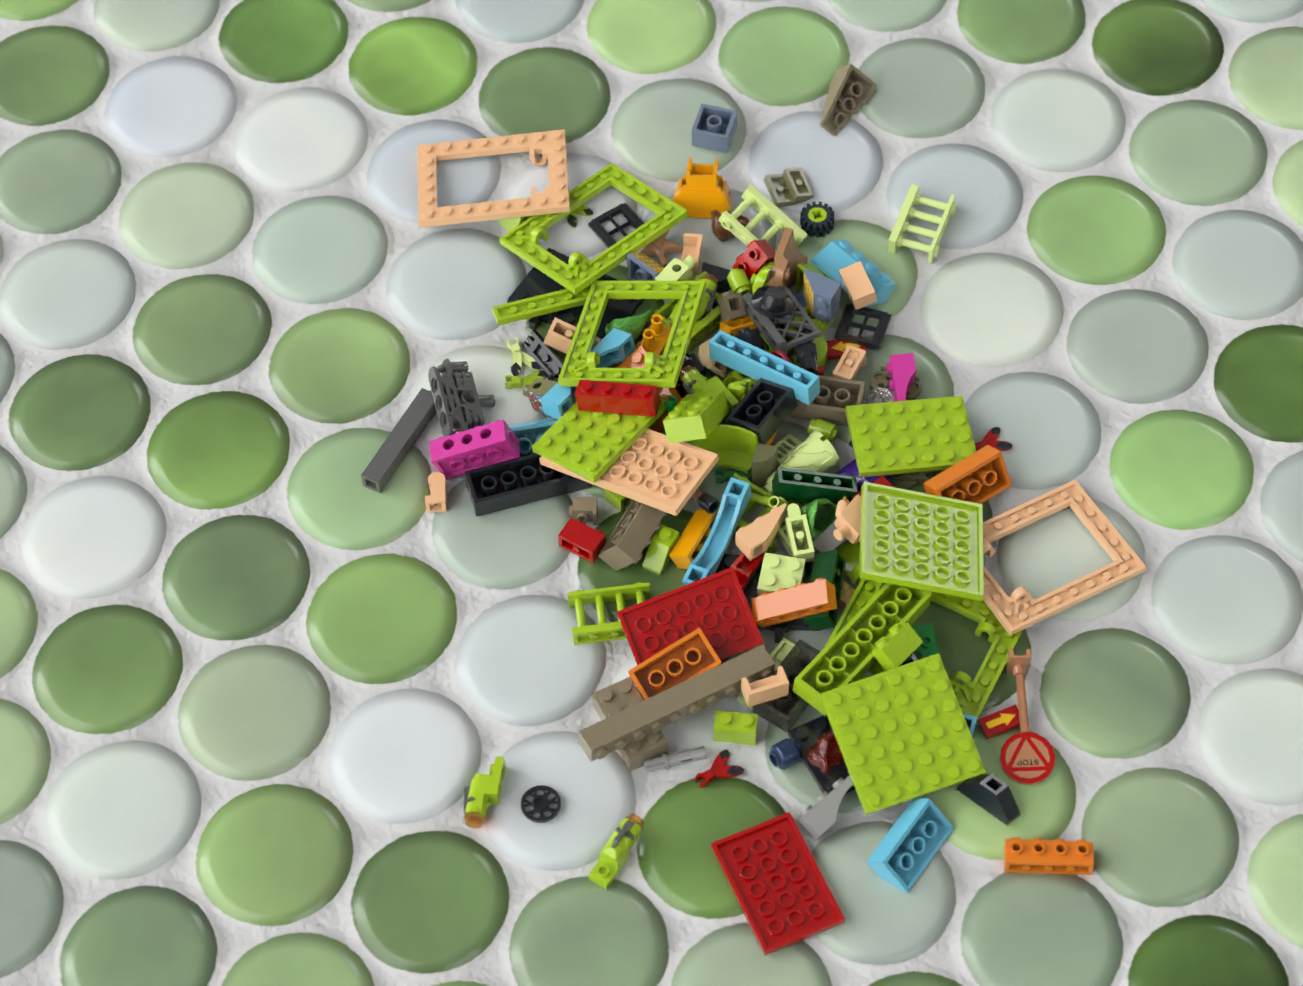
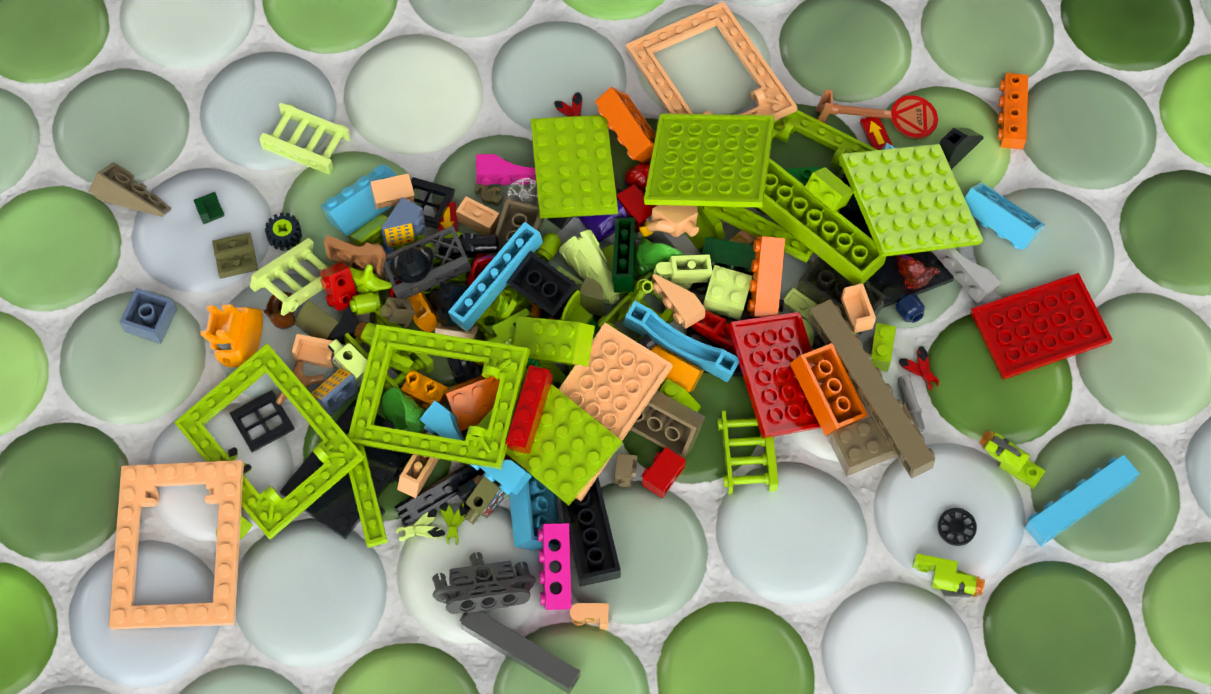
camera: 90 degrees left, 10 degrees up
(574, 918) = (1082, 500): none -> medium azure brick
(725, 253) = (315, 321): none -> olive brick
(835, 159) = (208, 208): none -> dark green panel

